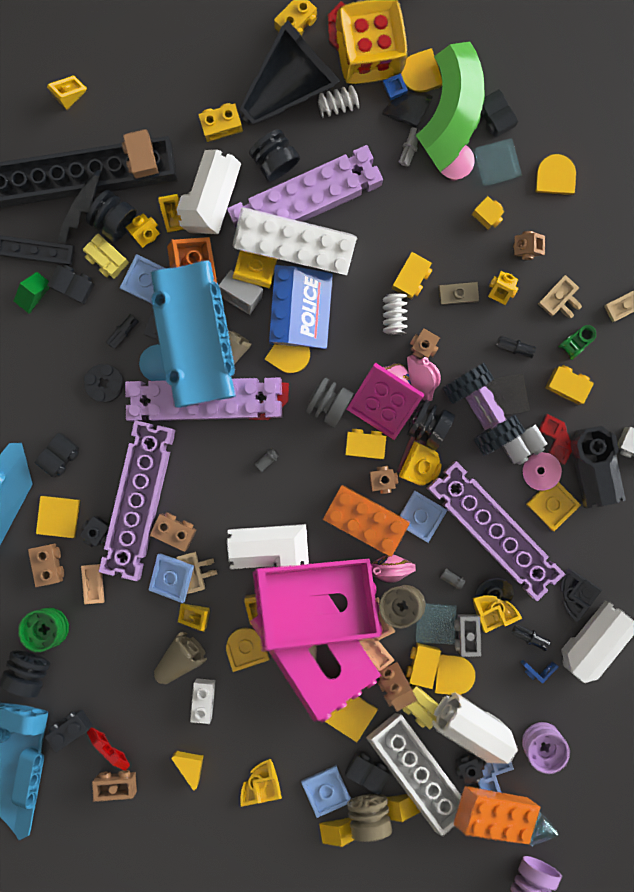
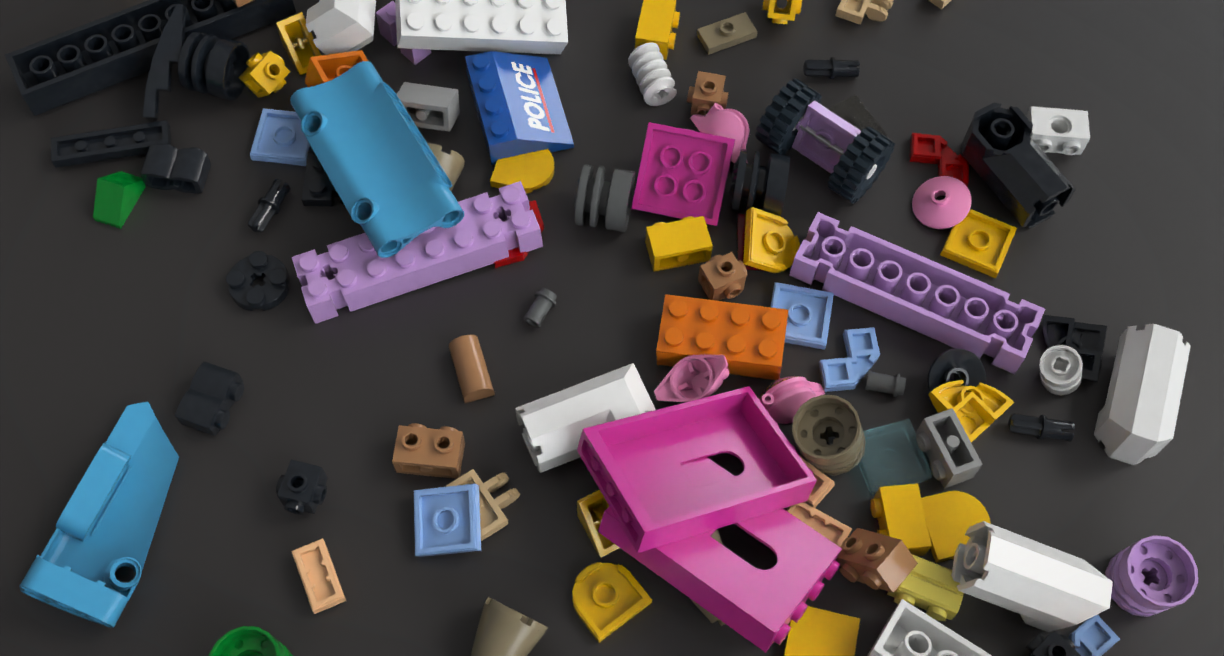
camera: 25 degrees left, 25 degrees down
(46, 565) = (231, 569): medium nougat brick -> none
(57, 517) = (233, 492): yellow tile -> none
(106, 256) = (218, 121): light yellow brick -> none
(137, 501) = (357, 424): lavender brick -> none
(152, 364) = (330, 227): dark azure dish -> none
(194, 616) = (503, 569): yellow slope -> none
(213, 486) = (471, 368): none -> medium nougat brick
(254, 268) = (438, 72): yellow tile -> none
(337, 543) = (693, 378): none -> bright pink hat
(434, 563) = (847, 372): none -> light blue tile
(529, 442) = (899, 176): light grey brick -> none
(544, 675) = (1072, 475): blue bracket -> none
(557, 611) = (1061, 370): none -> white wheel
(569, 384) = (924, 89): yellow brick -> none
(576, 343) = (909, 36): green piece -> none

